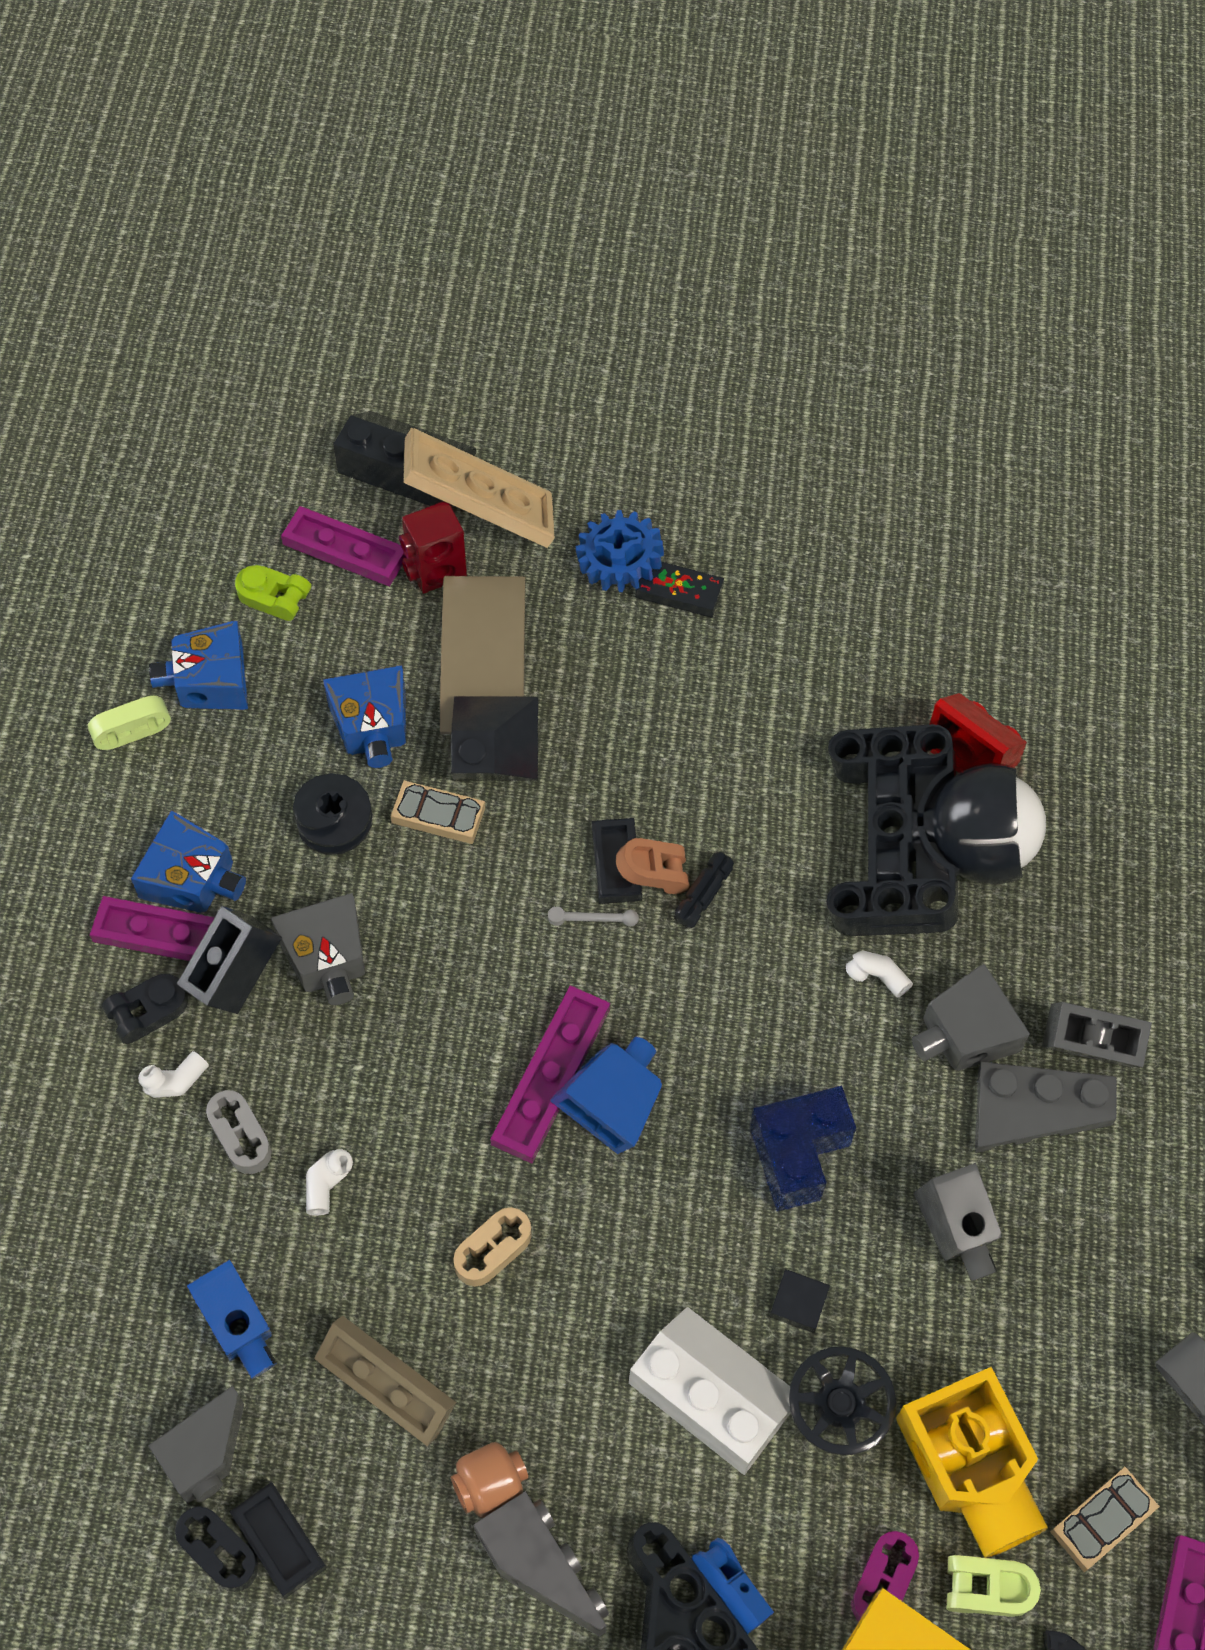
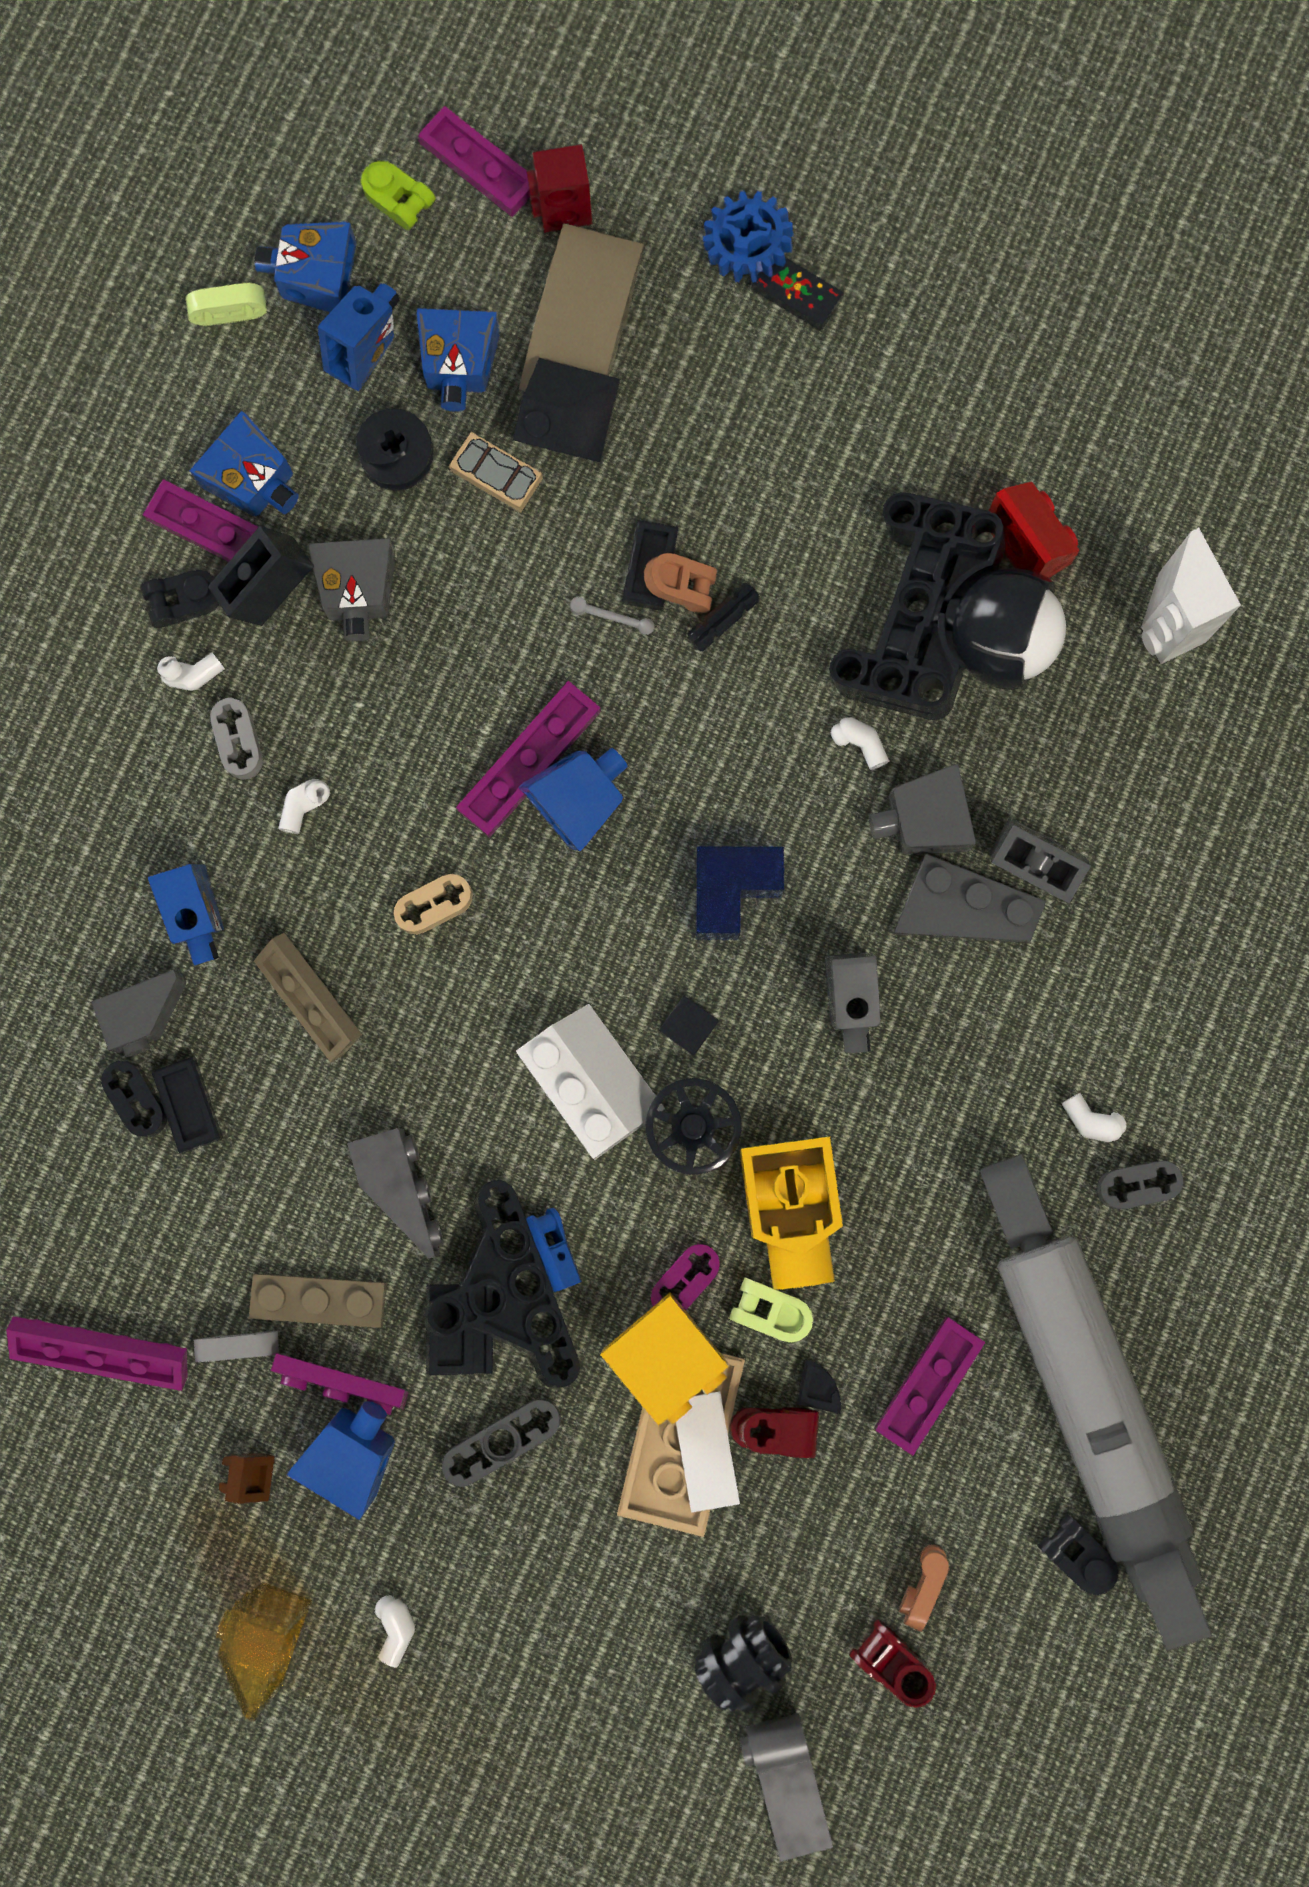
camera: 20 degrees right, 20 degrees up
(270, 702) = (357, 334): none -> blue torso
(373, 453) = (562, 72): black slope -> none
(478, 487) = (620, 134): tan tile -> none
(488, 1479) = (372, 1107): nougat head -> none
(1104, 1519) = (890, 1284): tile -> none
(1146, 757) = (1187, 601): none -> white slope

